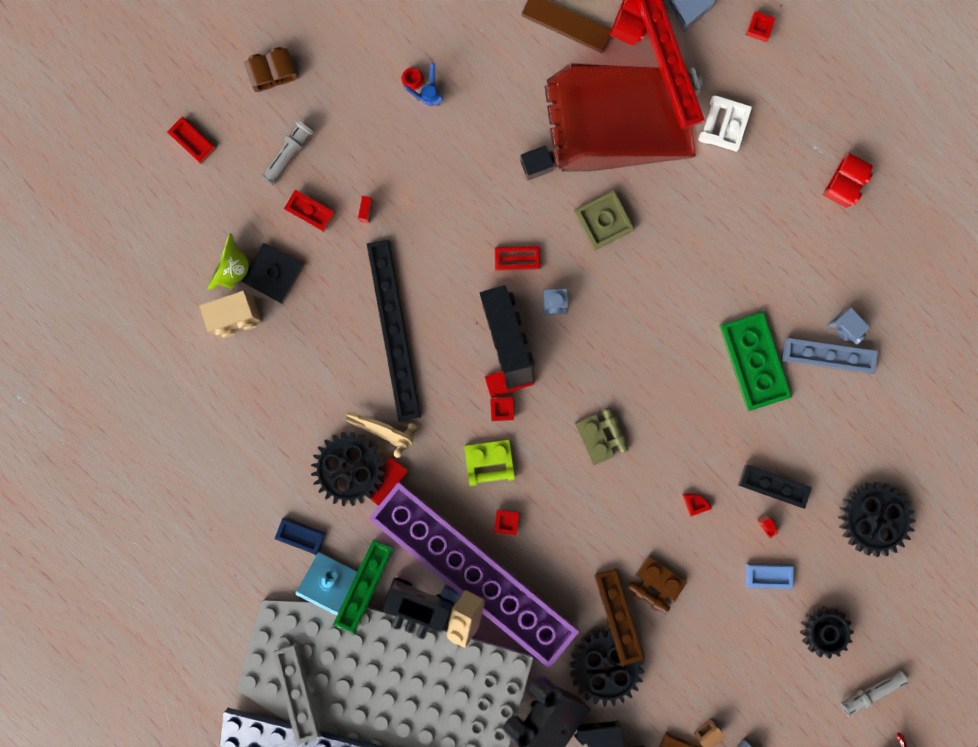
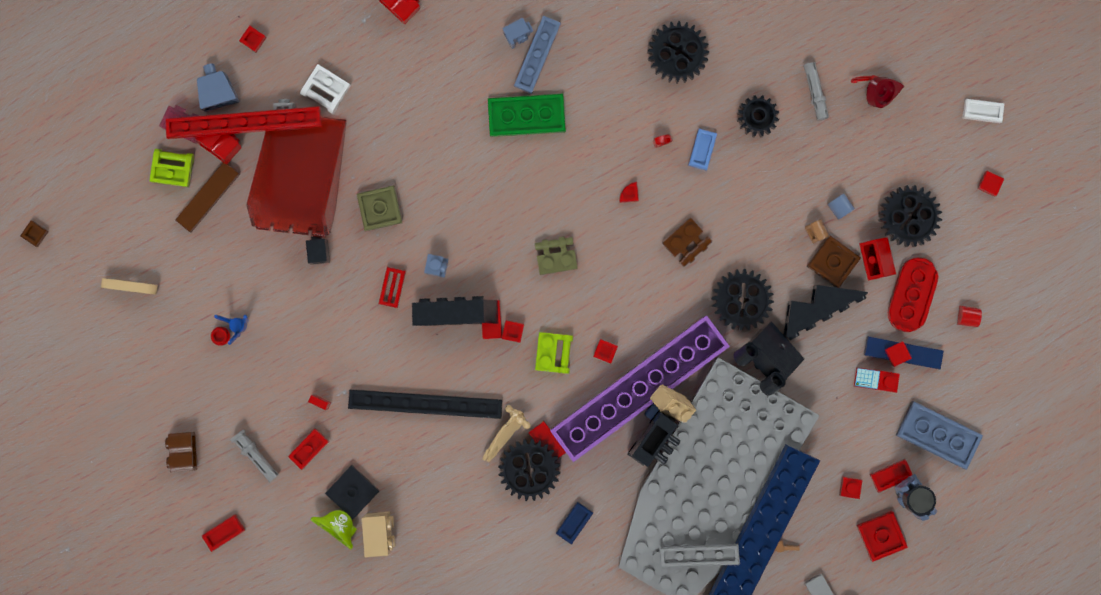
camera: 75 degrees left, 0 degrees up
(326, 583) = (618, 509): medium azure tile -> none
(363, 587) = (628, 480): green tile -> none
(619, 617) = (704, 279): reddish brown tile -> none
(775, 486) = (631, 126): black plate -> none

